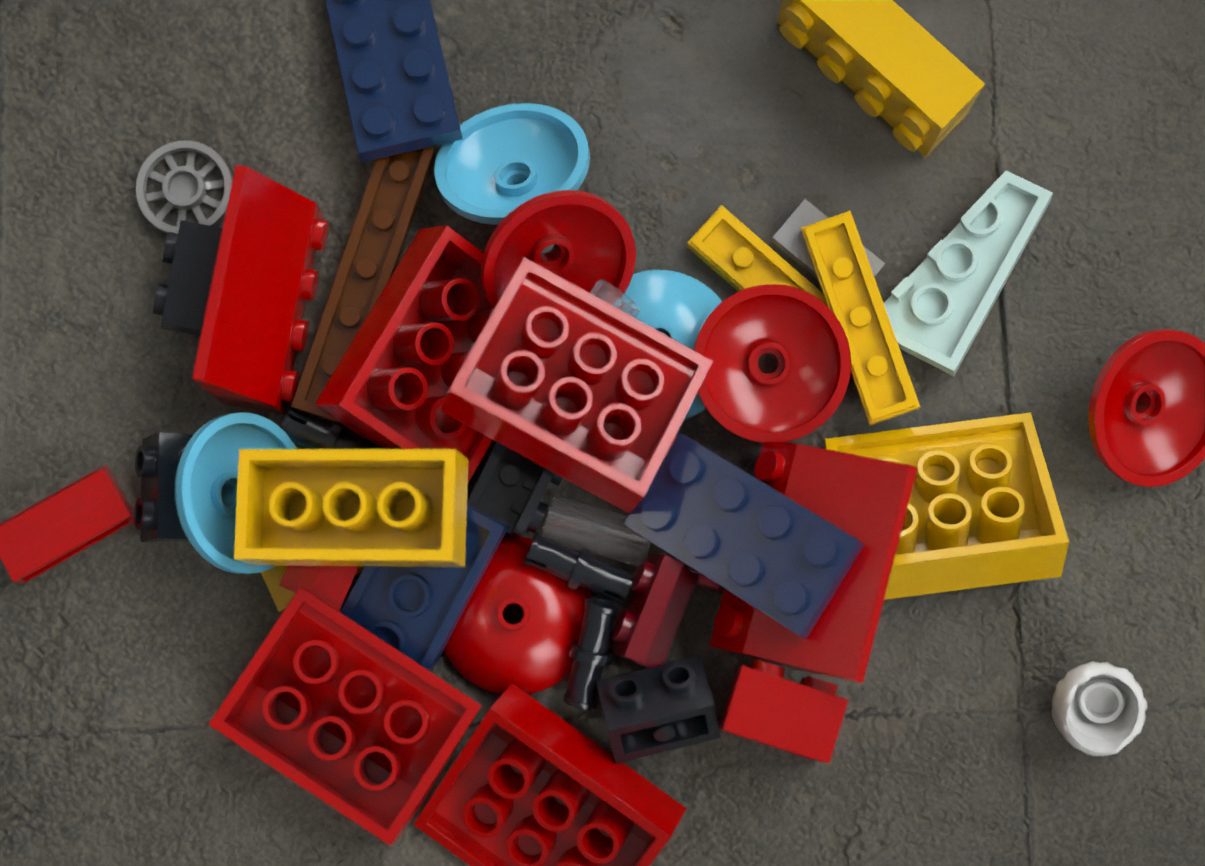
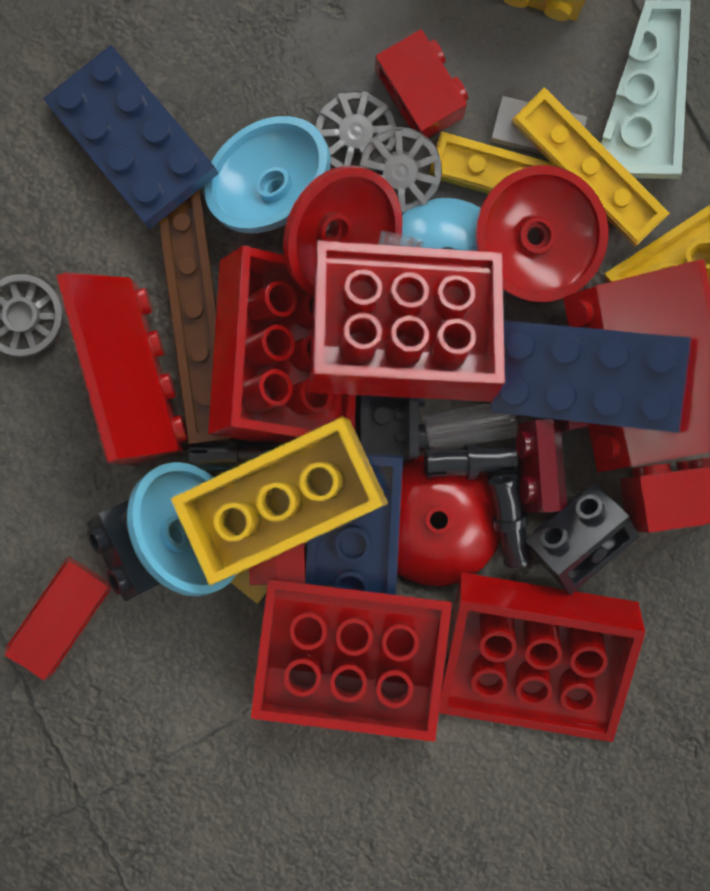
camera: 25 degrees left, 5 degrees up
(193, 264) = (60, 368): black brick -> none
(632, 163) = (355, 129): none -> light grey wheel
(660, 223) = (400, 166): none -> light grey wheel
(722, 148) = (421, 84): none -> red brick

